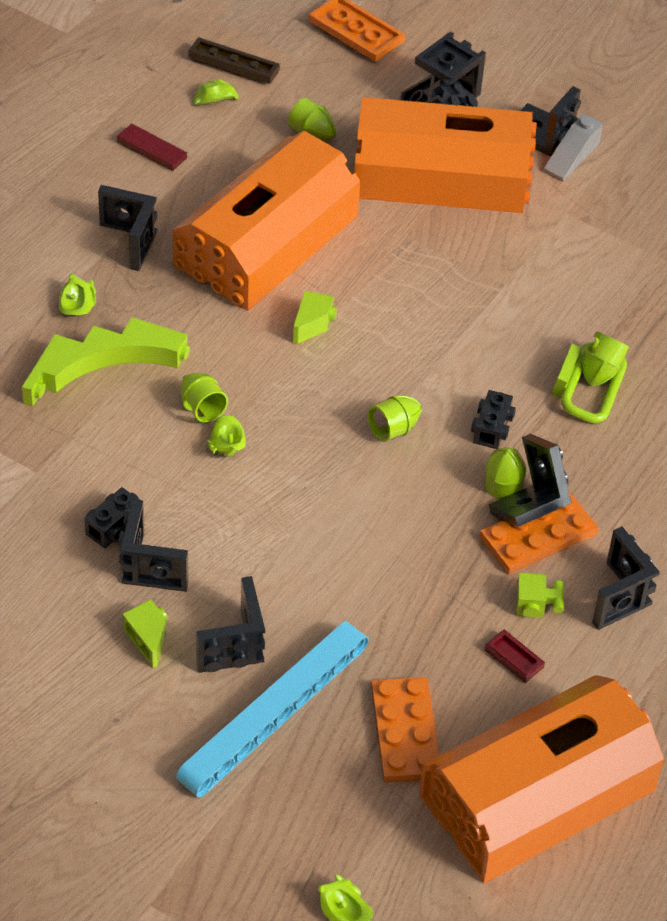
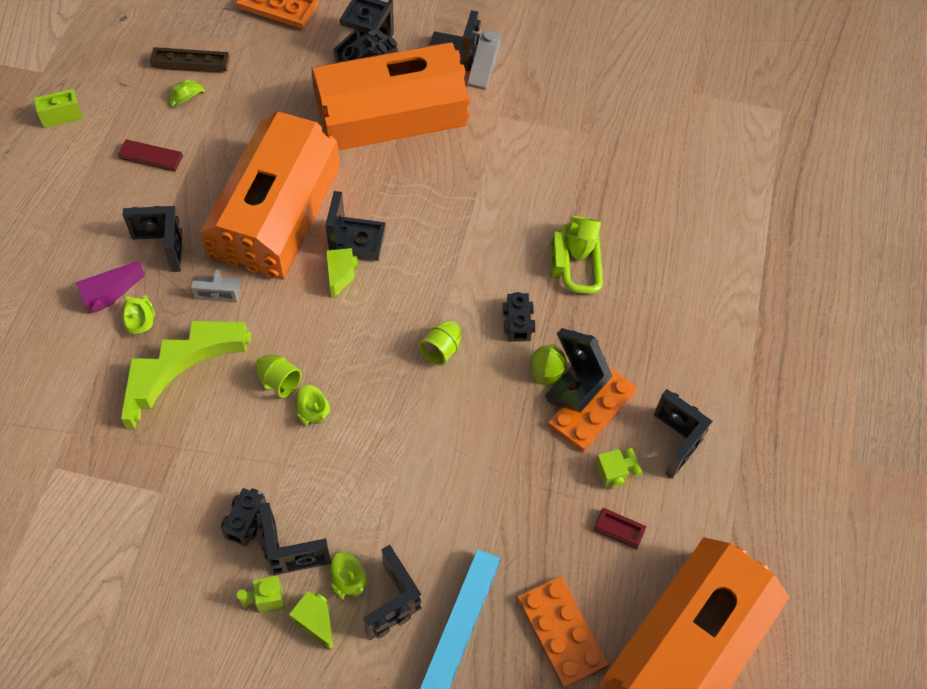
camera: 20 degrees left, 10 degrees up
(55, 262) = (106, 288): none -> magenta slope
(70, 72) = (58, 108): none -> lime panel
(107, 592) = (266, 595): none -> lime brick
(170, 297) = (216, 288): none -> light grey panel
(198, 602) = (347, 575): none -> lime hat
(313, 119) = (274, 95): lime helmet -> none
(332, 279) = (344, 231): none -> black bracket

